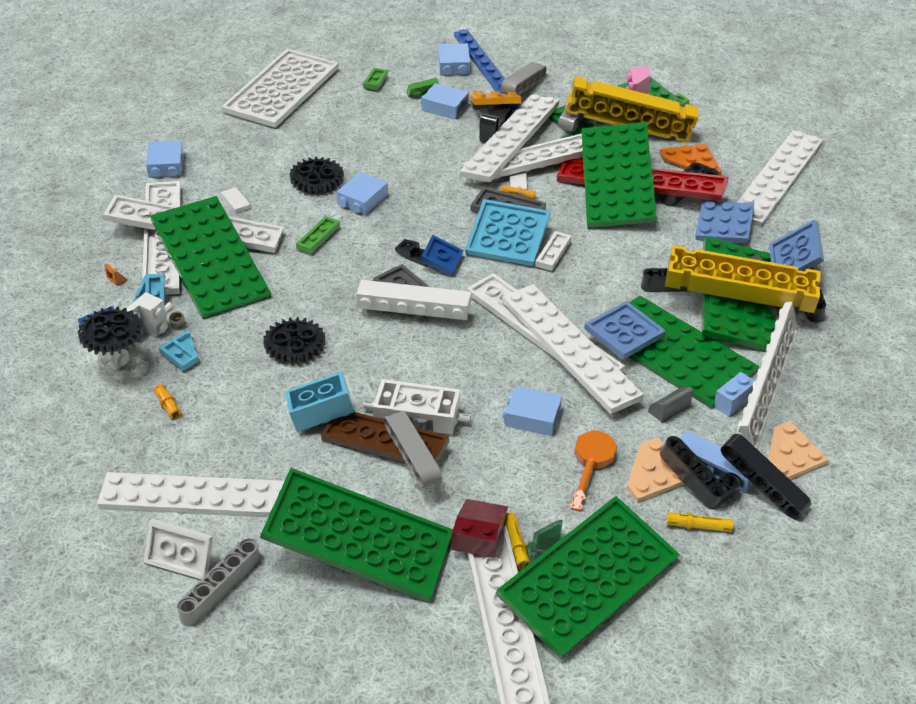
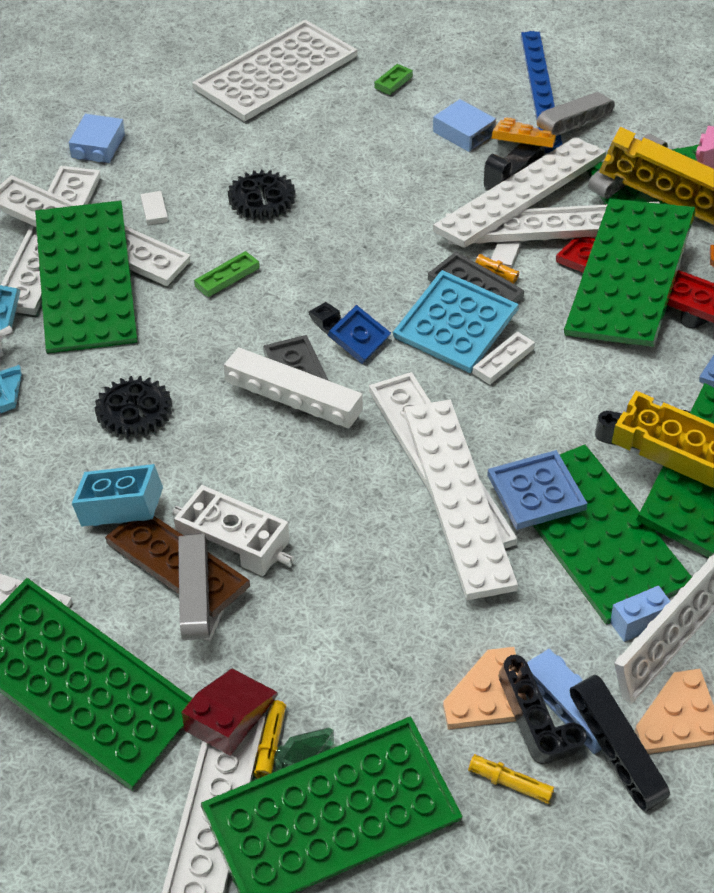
camera: 20 degrees right, 5 degrees up
(179, 319) = (16, 344): dark tan hinge -> none
(362, 193) = (303, 230): light blue brick -> none
(421, 87) = (436, 102): bright green plate -> none
(453, 59) = (502, 69): light blue brick -> none
(532, 410) = (372, 570): light blue brick -> none
(593, 450) = (423, 645): orange piece -> none
(671, 404) = (553, 606): dark grey brick -> none

